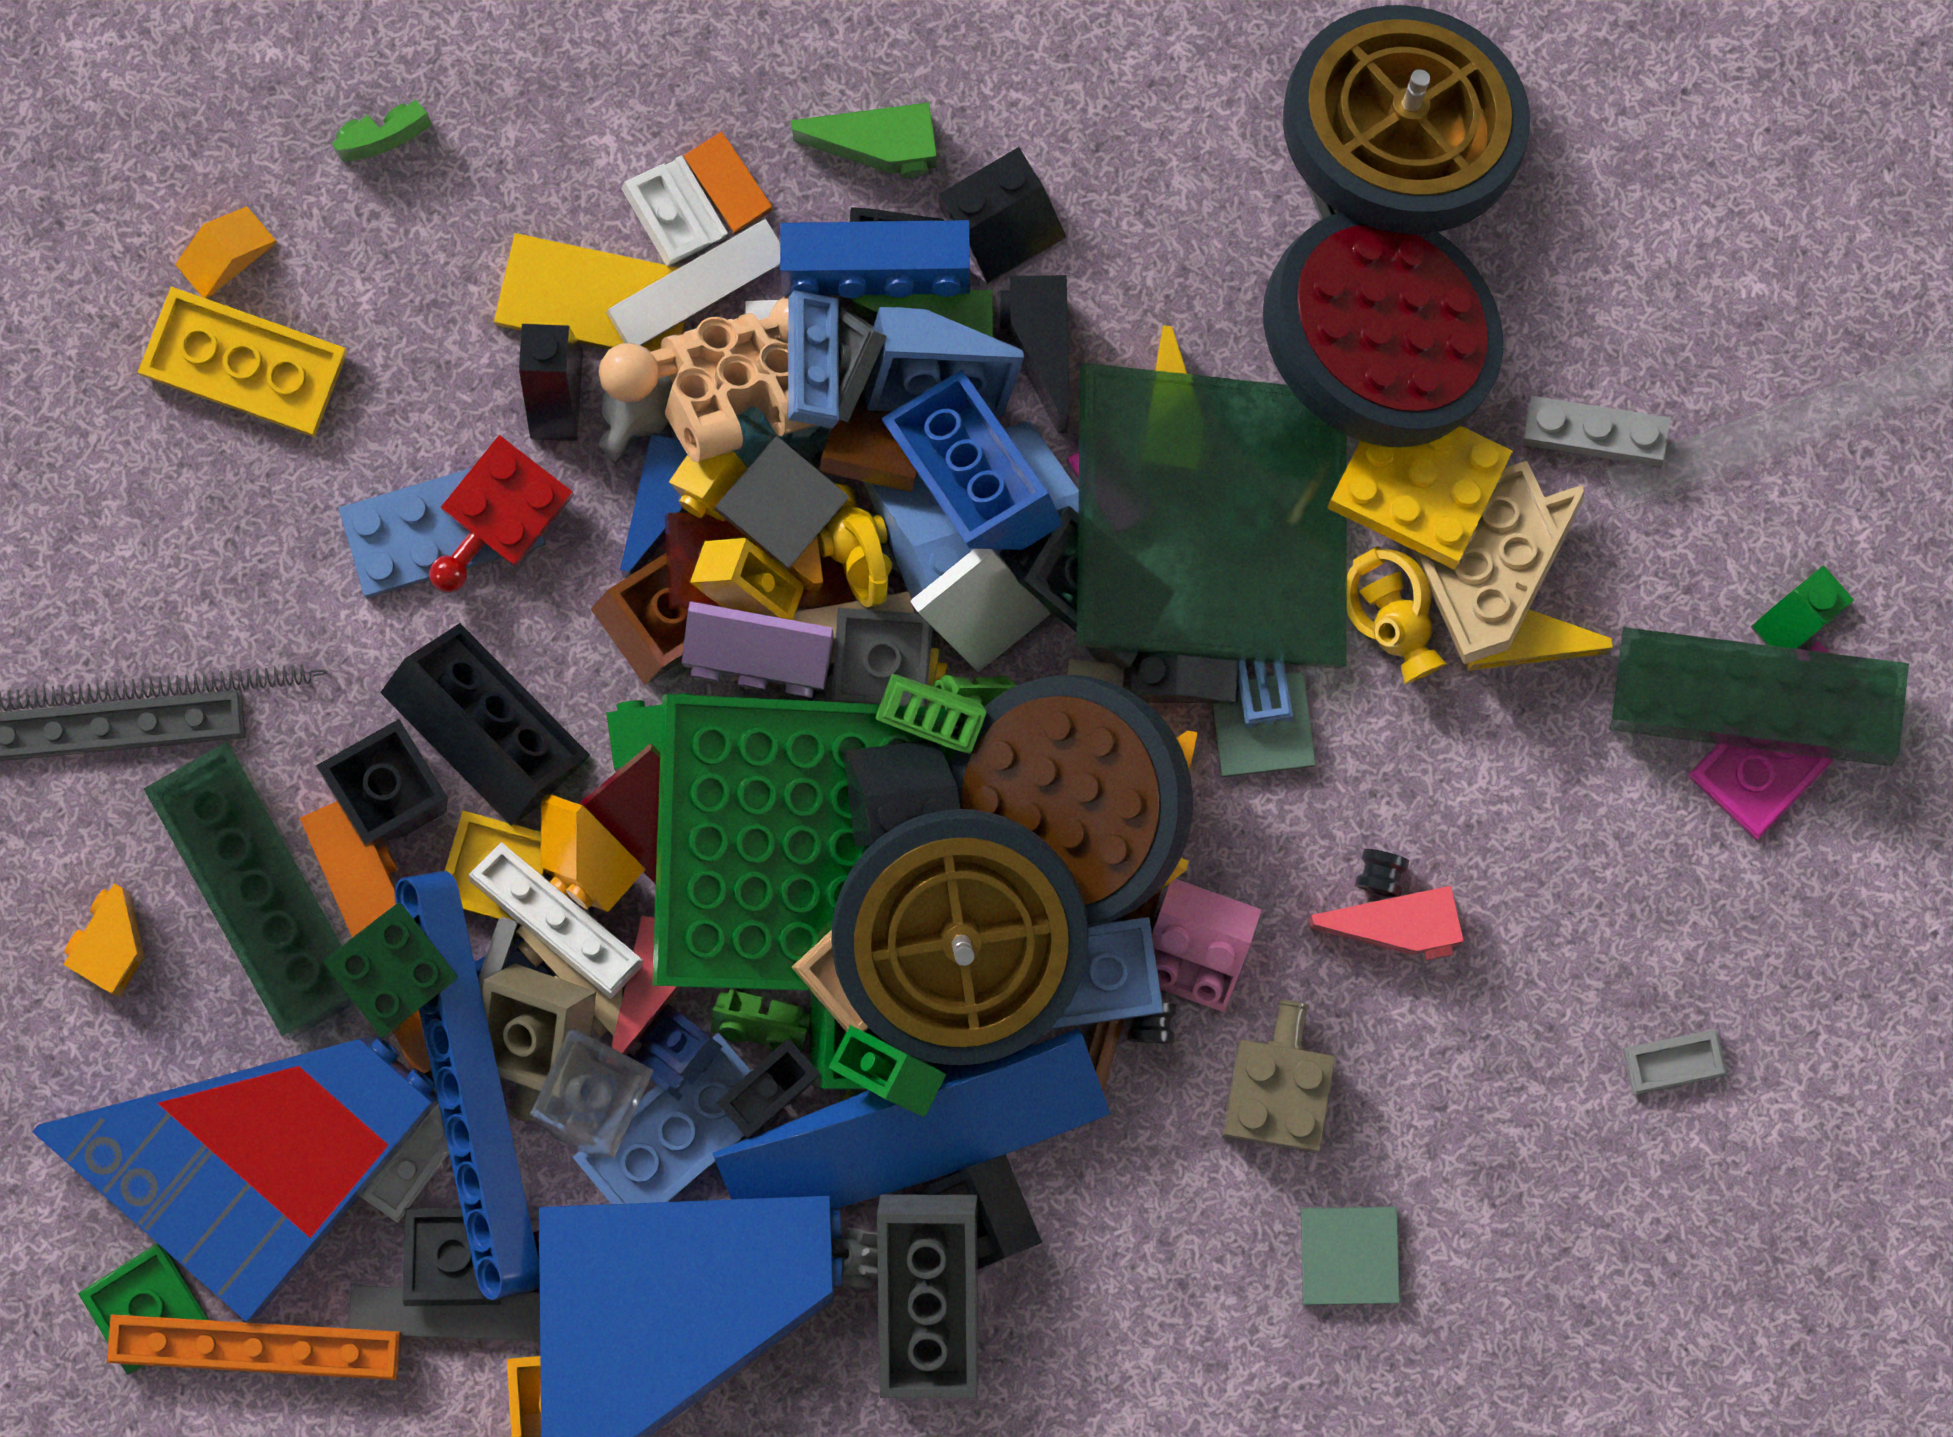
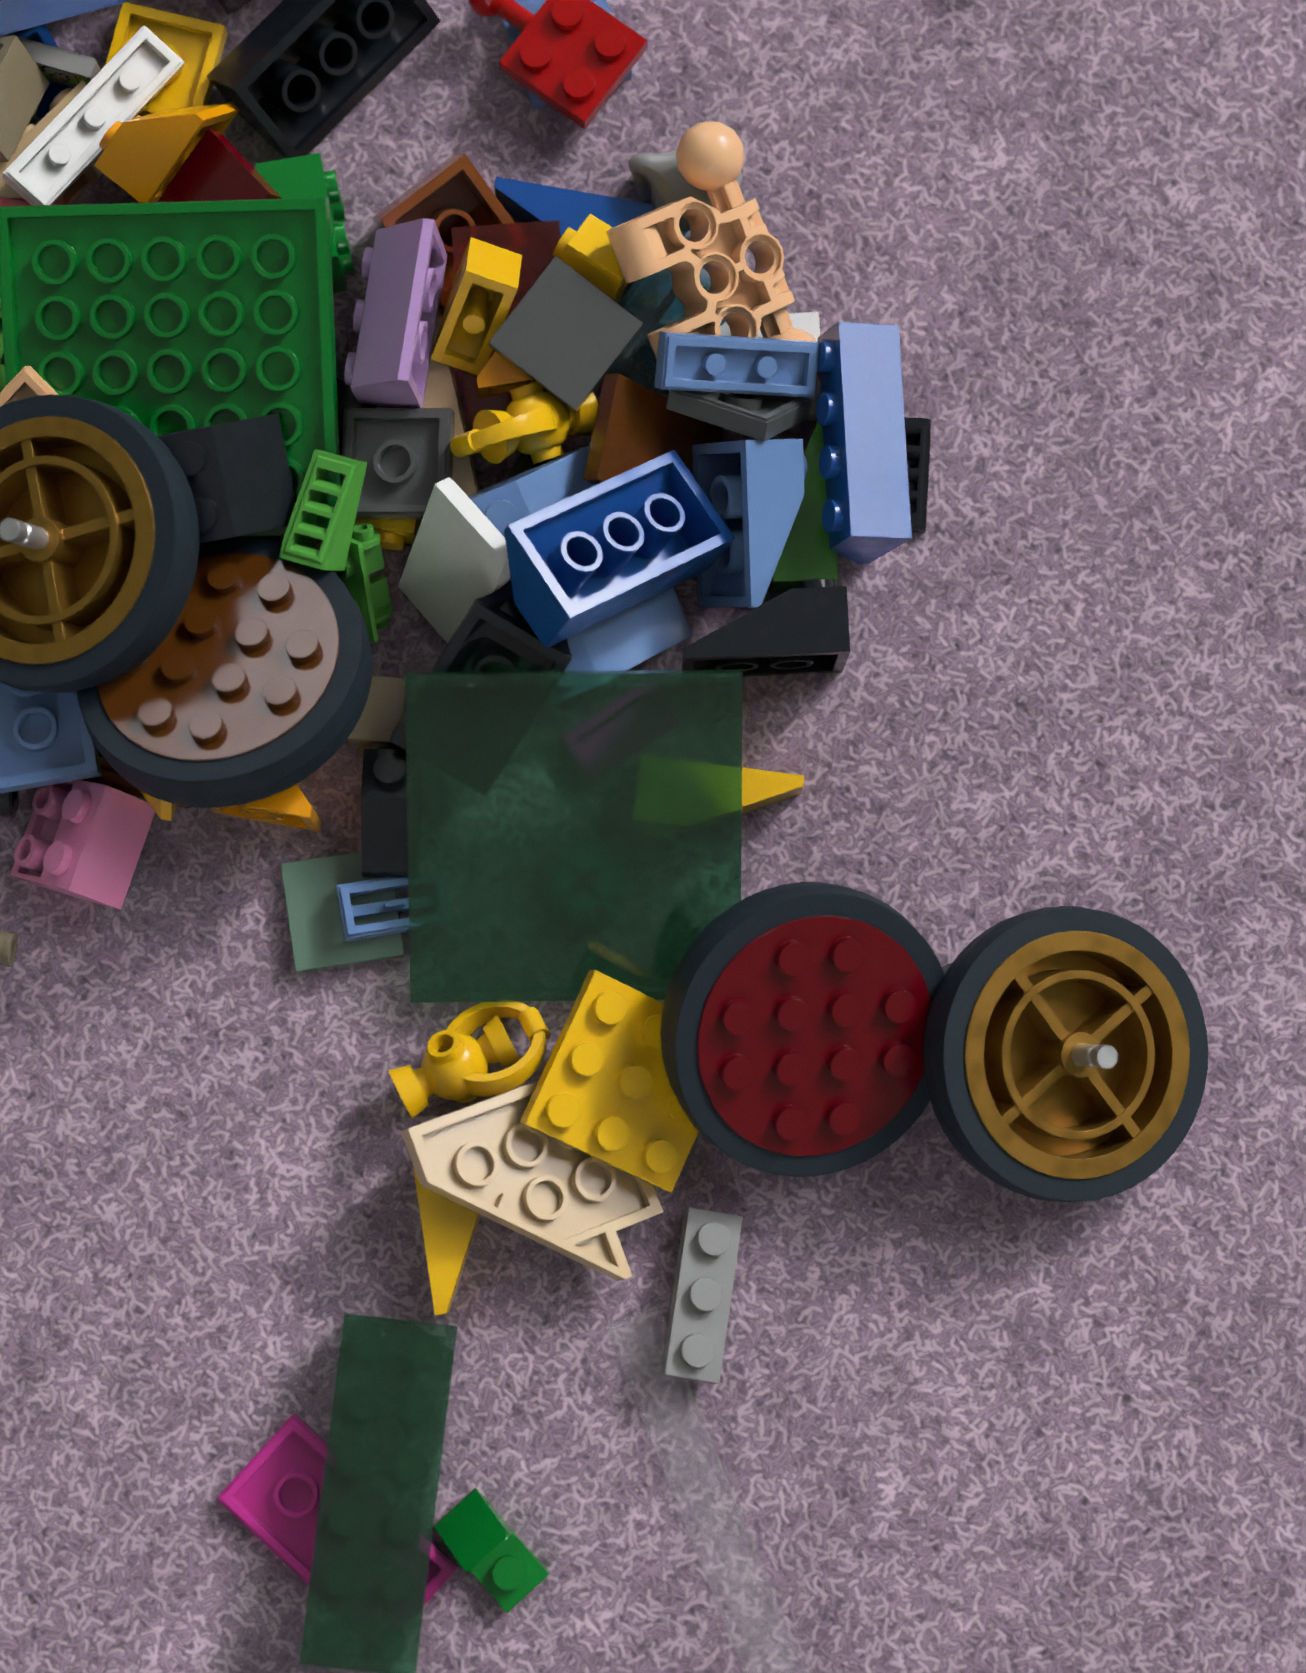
camera: 85 degrees right, 0 degrees up
(551, 381) = (712, 83): black slope -> none
(573, 287) = (817, 146): yellow tile -> none
(674, 210) = (919, 228): white plate -> none
(696, 285) = (827, 245): white tile -> none
(728, 183) = (956, 288): orange tile -> none
(881, 138) = (1016, 463): bright green slope -> none
(1005, 213) = (930, 592): black slope -> none
(1382, 873) = (167, 1050): black wheel -> none
(1407, 923) = (108, 1075): coral slope -> none

